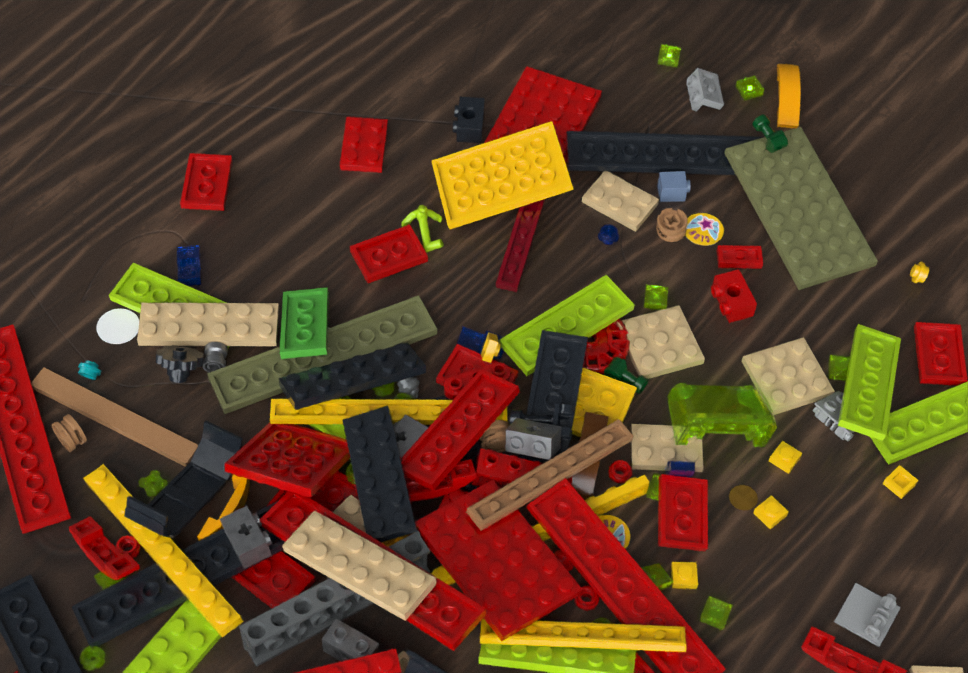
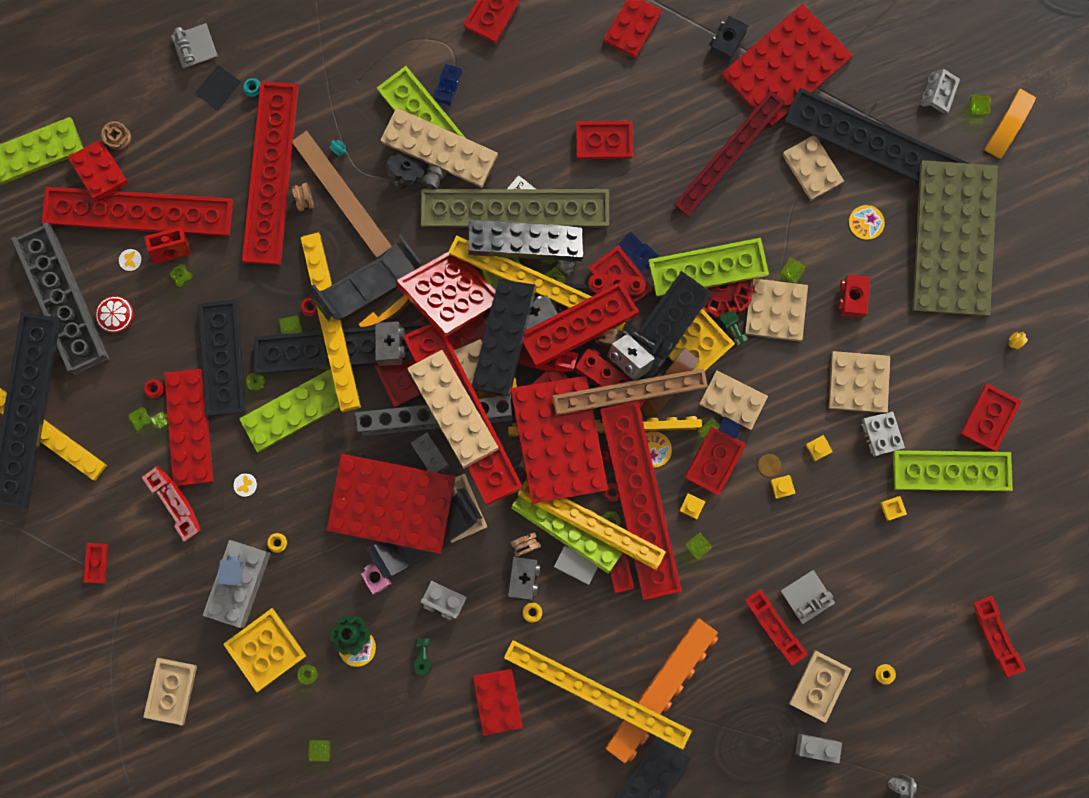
camera: 30 degrees right, 25 degrees up
(101, 551) = (291, 303): red slope -> none
(118, 326) = (375, 115): white sticker -> none
(153, 490) = (352, 264): clear neon green plate -> none
(304, 323) = (510, 178): bright green plate -> none
(422, 215) = (645, 117): lime piece -> none
(490, 348) = (639, 263): yellow plate -> none
(501, 175) = (725, 108): yellow plate -> none
(608, 234) = (789, 193): clear blue plate -> none
(623, 466) = (690, 399): red plate -> none
(658, 576) = (669, 499): clear neon green plate -> none
(669, 55) = (929, 42): clear neon green plate -> none
(672, 224) = (841, 209): medium nougat wheel -> none
(673, 186) = (861, 174): sand blue brick -> none
(720, 411) = (785, 394): clear neon green windscreen -> none
(739, 256) = (880, 262): red plate -> none
(775, 140) = (966, 173): dark green leg -> none
(838, 367) = (905, 393): clear neon green plate -> none
(869, 382) = (917, 419): lime plate -> none

